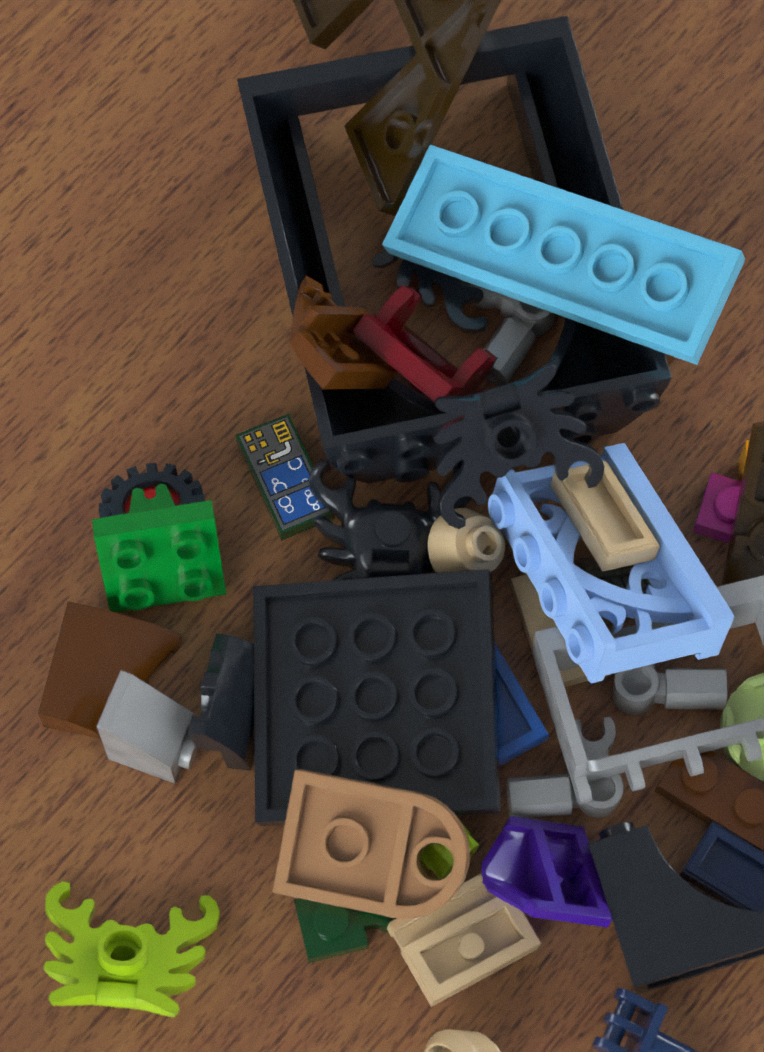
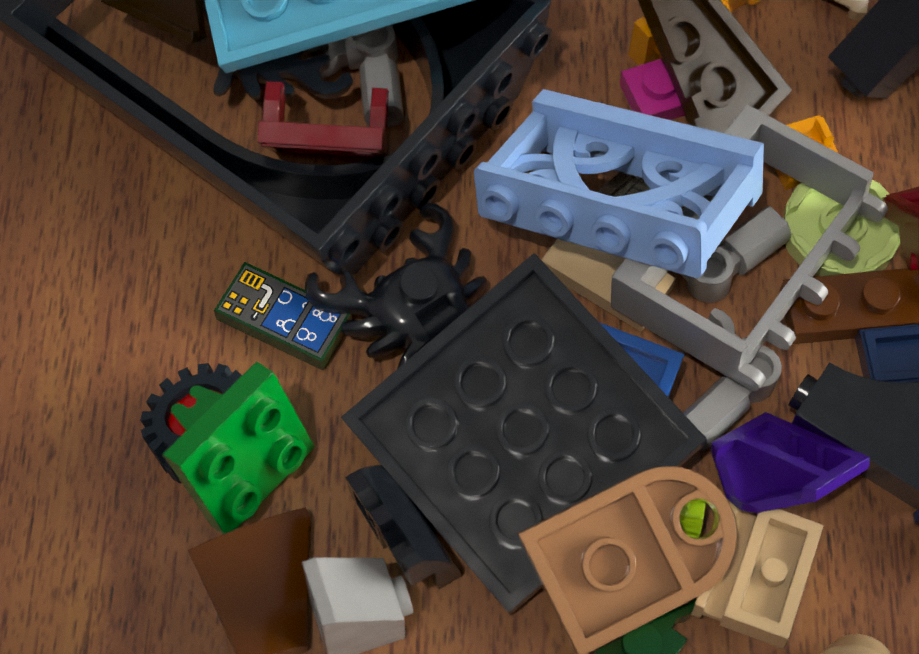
camera: 40 degrees left, 5 degrees down
(327, 344) = (234, 157): reddish brown slope -> none
(465, 549) = (486, 254): tan cone -> none
(508, 430) = (461, 127): black animal -> none
(606, 519) = (585, 148): tan tile -> none

